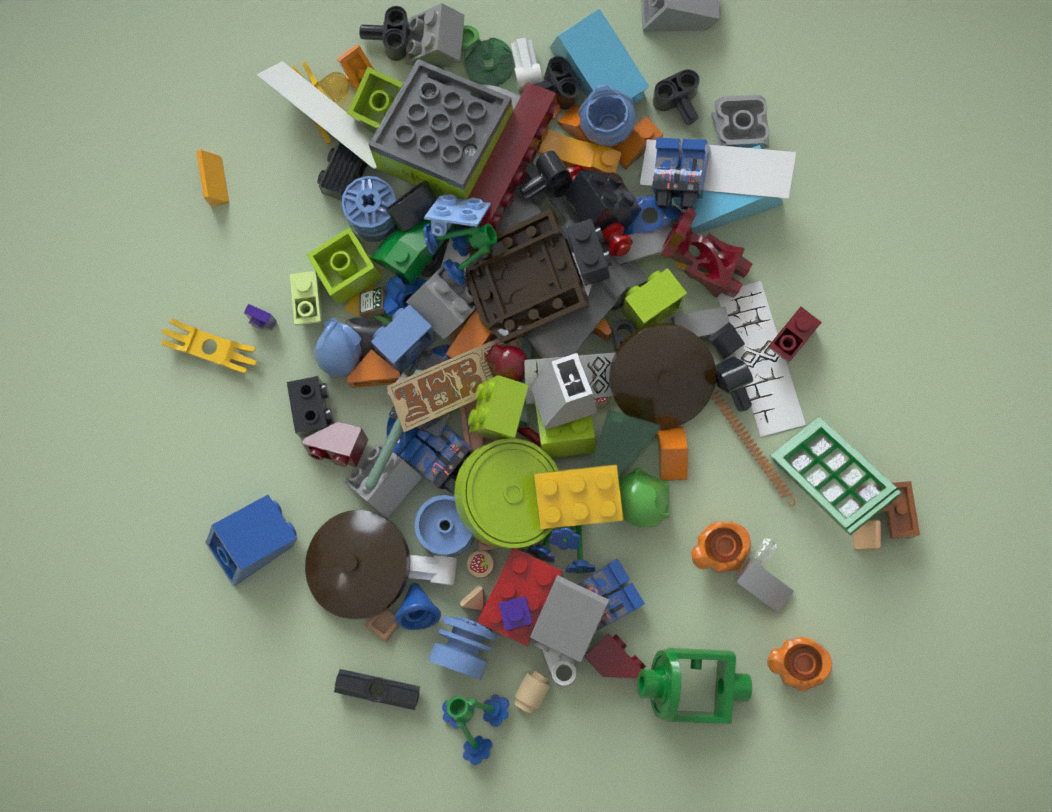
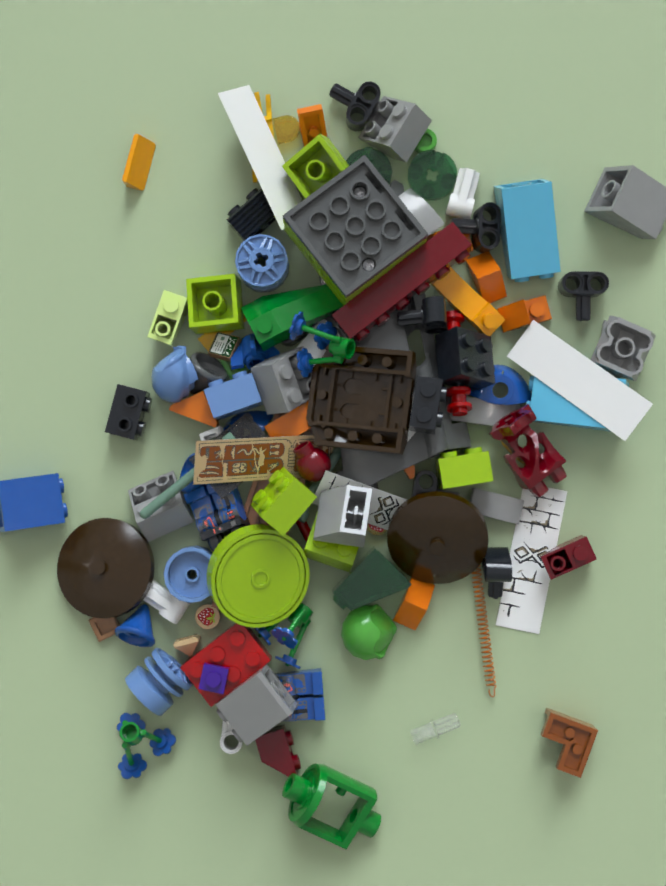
camera: 25 degrees right, 10 degrees up
(194, 346) = (56, 306): yellow piece -> none
(259, 317) = (121, 313): dark purple plate -> none
(338, 443) = (137, 456): slope -> none
(360, 684) = (60, 667): black piece -> none
(412, 206) = (297, 285): black beam -> none
(450, 210) = (329, 314): light blue hinge -> none
(532, 692) = (198, 742): tan brick -> none
(578, 496) = (313, 609): yellow plate -> none
(607, 116) = (507, 286): medium blue helmet -> none
(680, 171) = (544, 367): hips -> none
(722, 547) = (413, 703): orange piece -> none
(726, 340) = (509, 531): black tile -> none
(764, 586) = (431, 752): light grey slope -> none
(801, 663) = (428, 828): orange piece -> none
(835, 475) = (537, 693): piece -> none
(868, 536) = (539, 752): light nougat slope -> none

